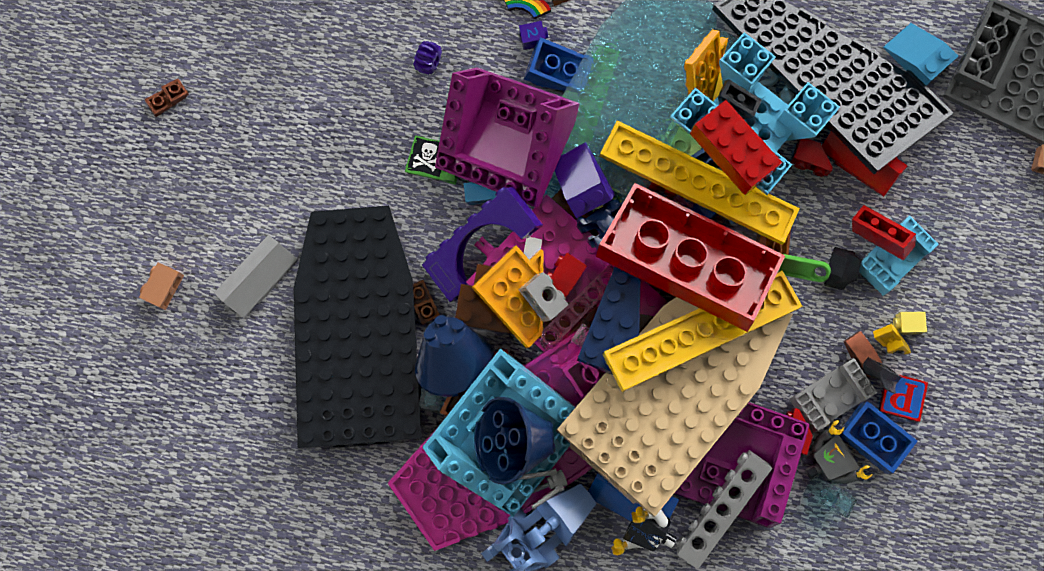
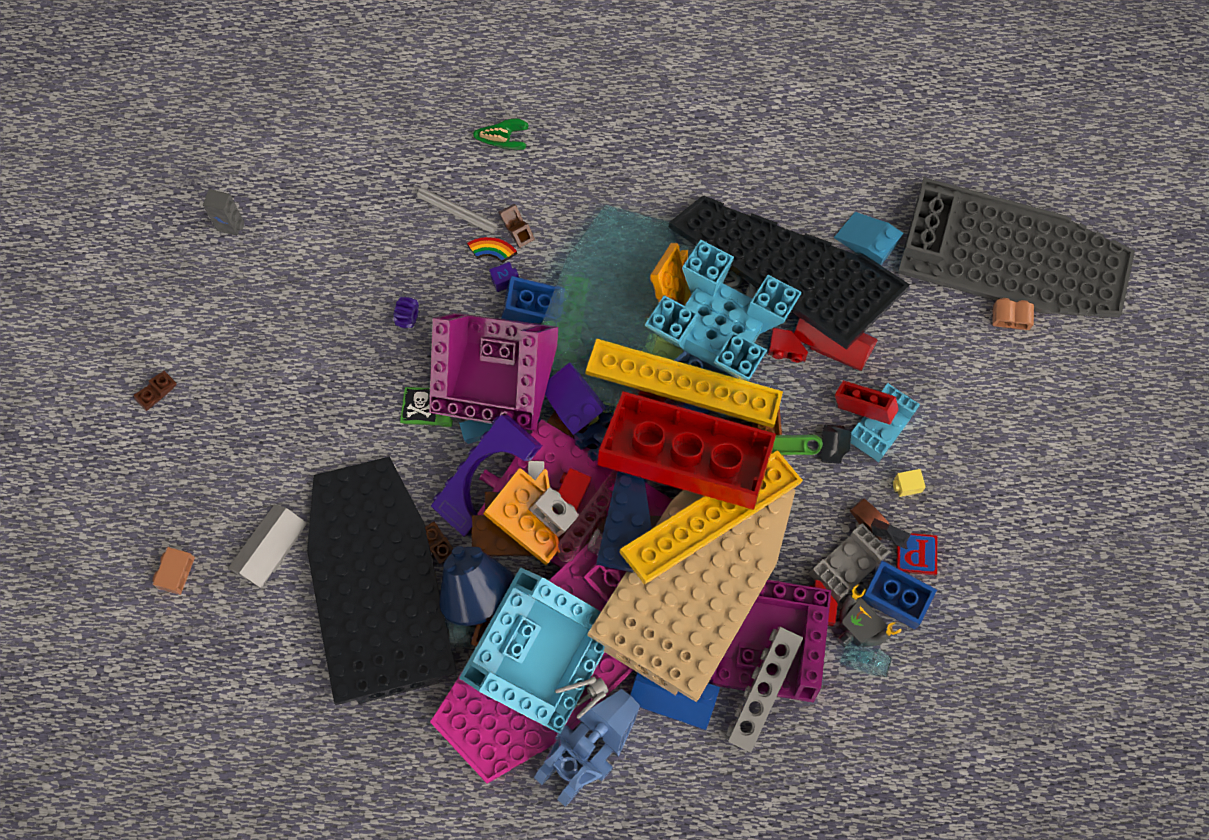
camera: 15 degrees left, 10 degrees down
(511, 440) = (545, 651): dark blue cone -> none
(645, 532) = (693, 724): torso -> none
(735, 147) = (710, 341): red brick -> none
(740, 99) = (706, 303): black slope -> none
(891, 339) = (894, 501): yellow slope -> none

